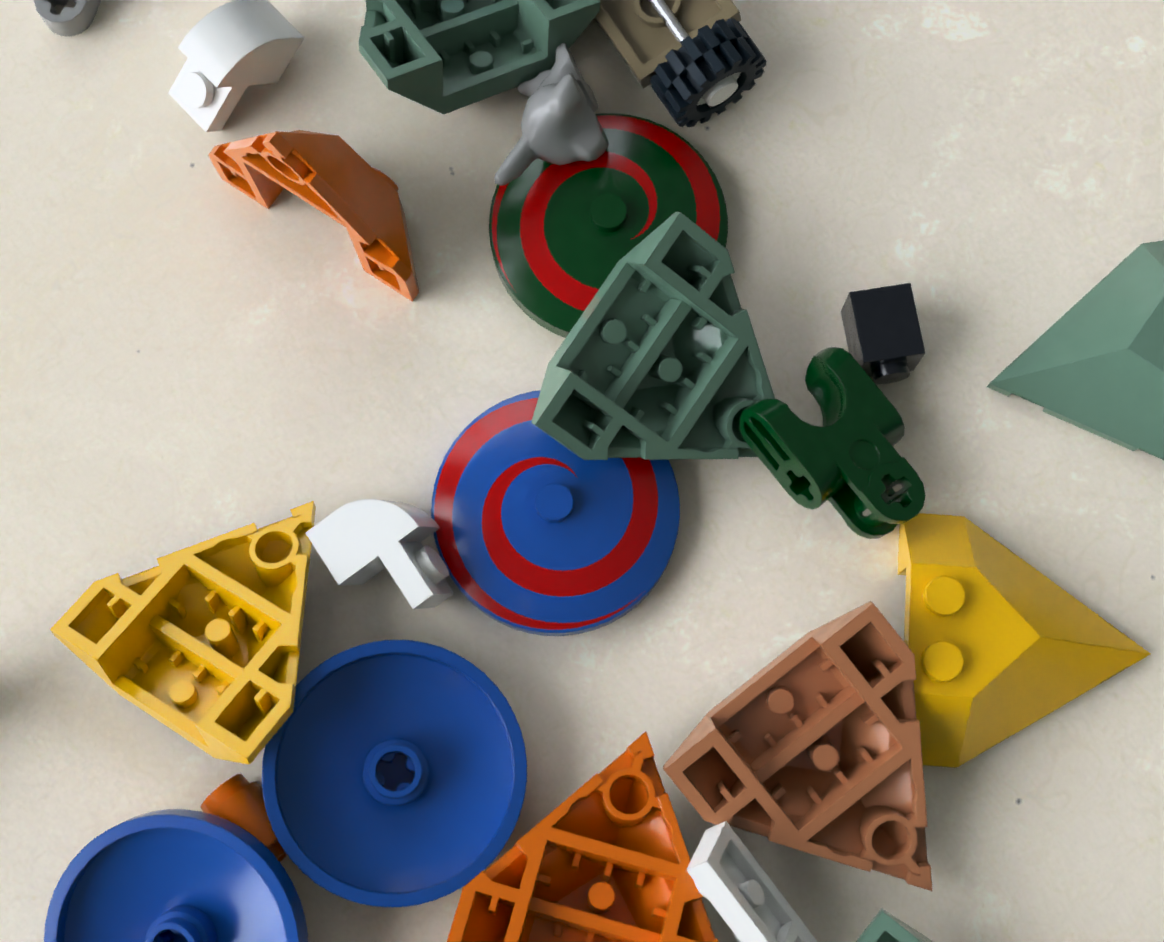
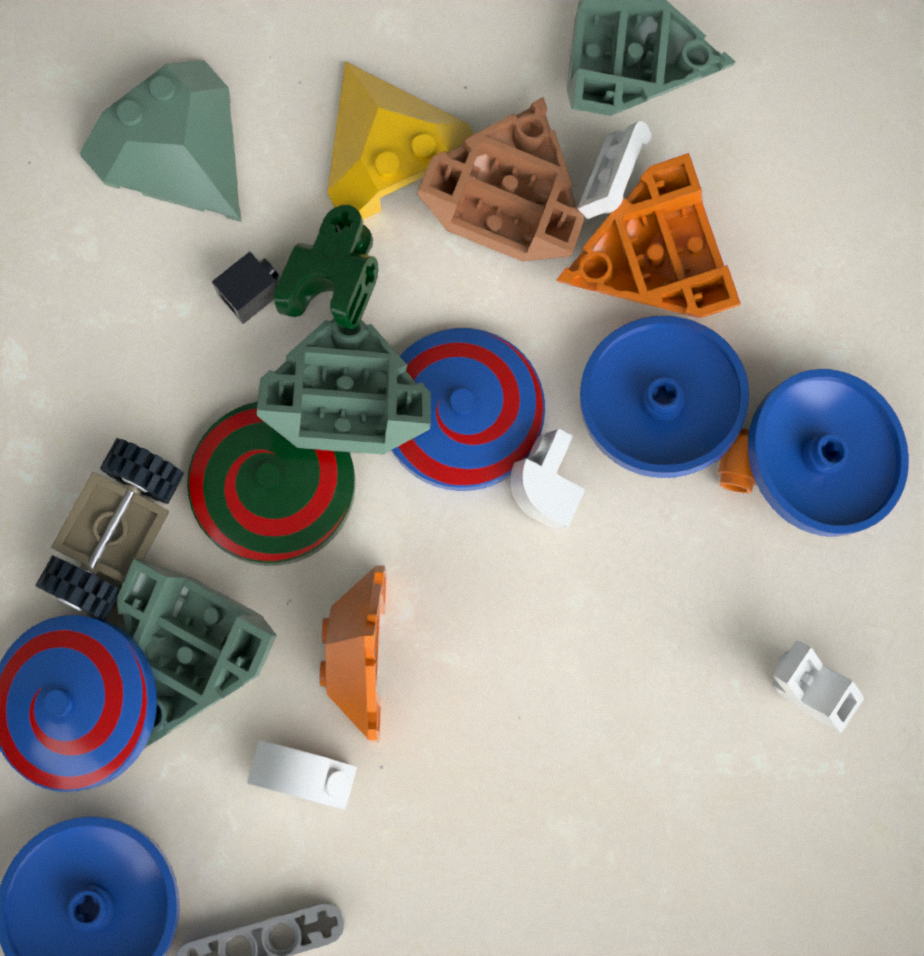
camera: 125 degrees left, 0 degrees up
(205, 635) = (659, 542): yellow wedge -> none
(556, 120) = (225, 539): light grey animal -> none

